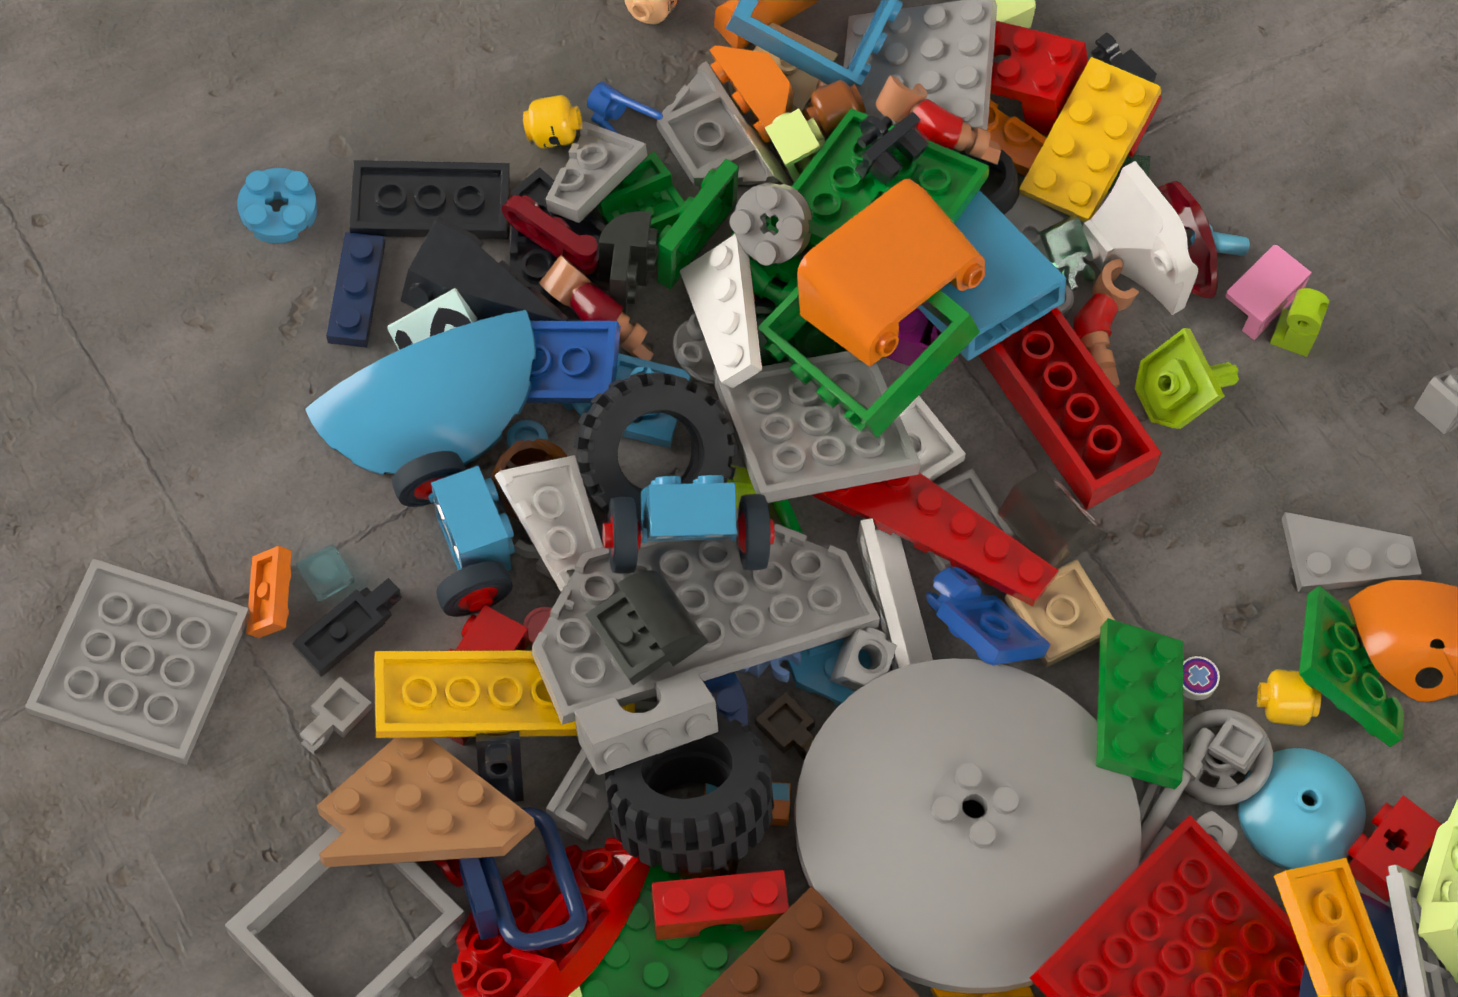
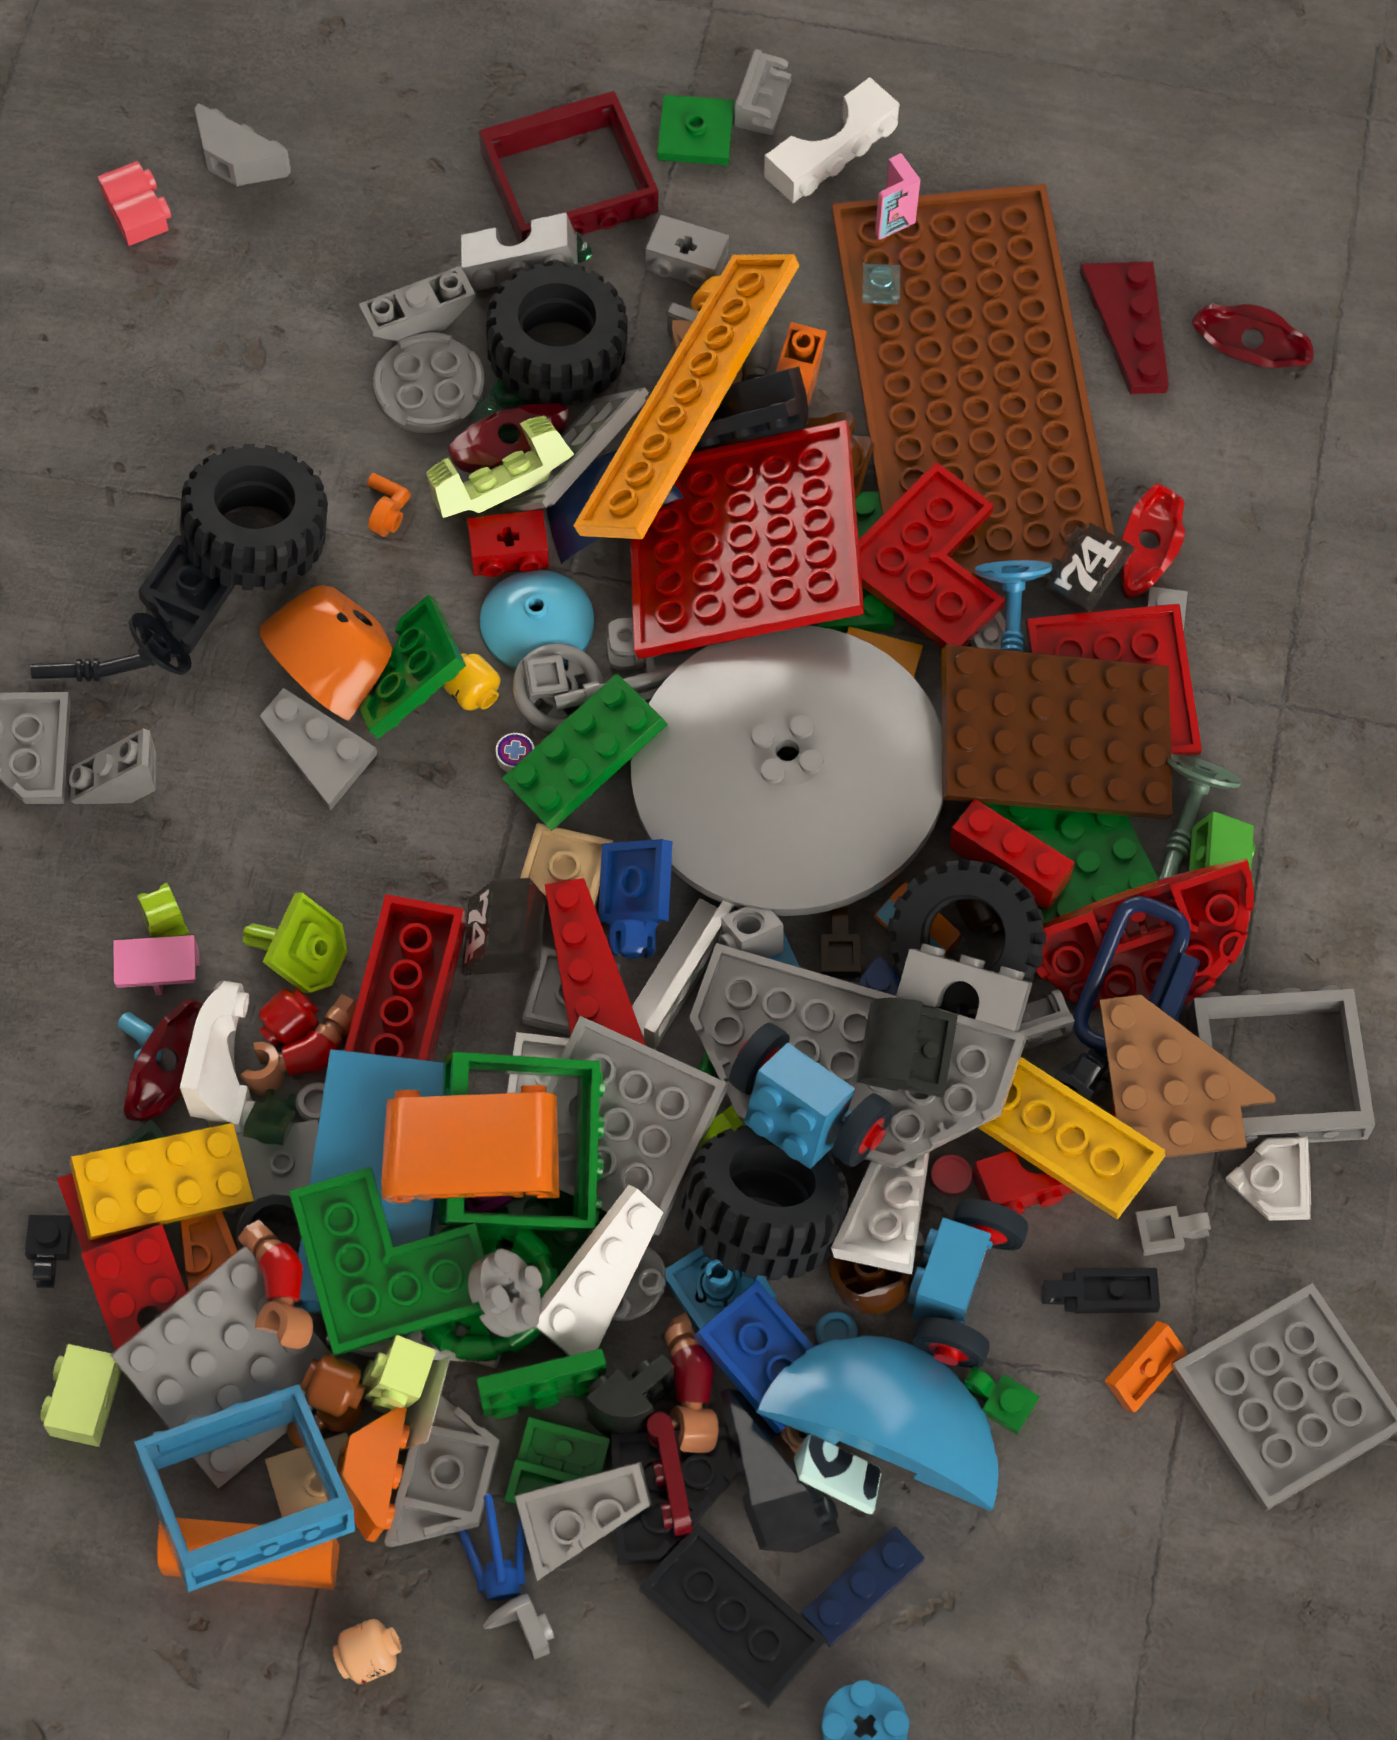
camera: 135 degrees left, 0 degrees up
(274, 825) = (1276, 1179): none -> white plate
(325, 573) = (1086, 1354): clear light blue plate -> none
(357, 489) = (1006, 1402): none -> green plate
(552, 122) = (568, 1596): yellow head -> none
(553, 83) = (534, 1627): none -> light grey plate
(879, 157) = (353, 1273): black hips -> none
(1135, 331) = (288, 1017): none -> red head

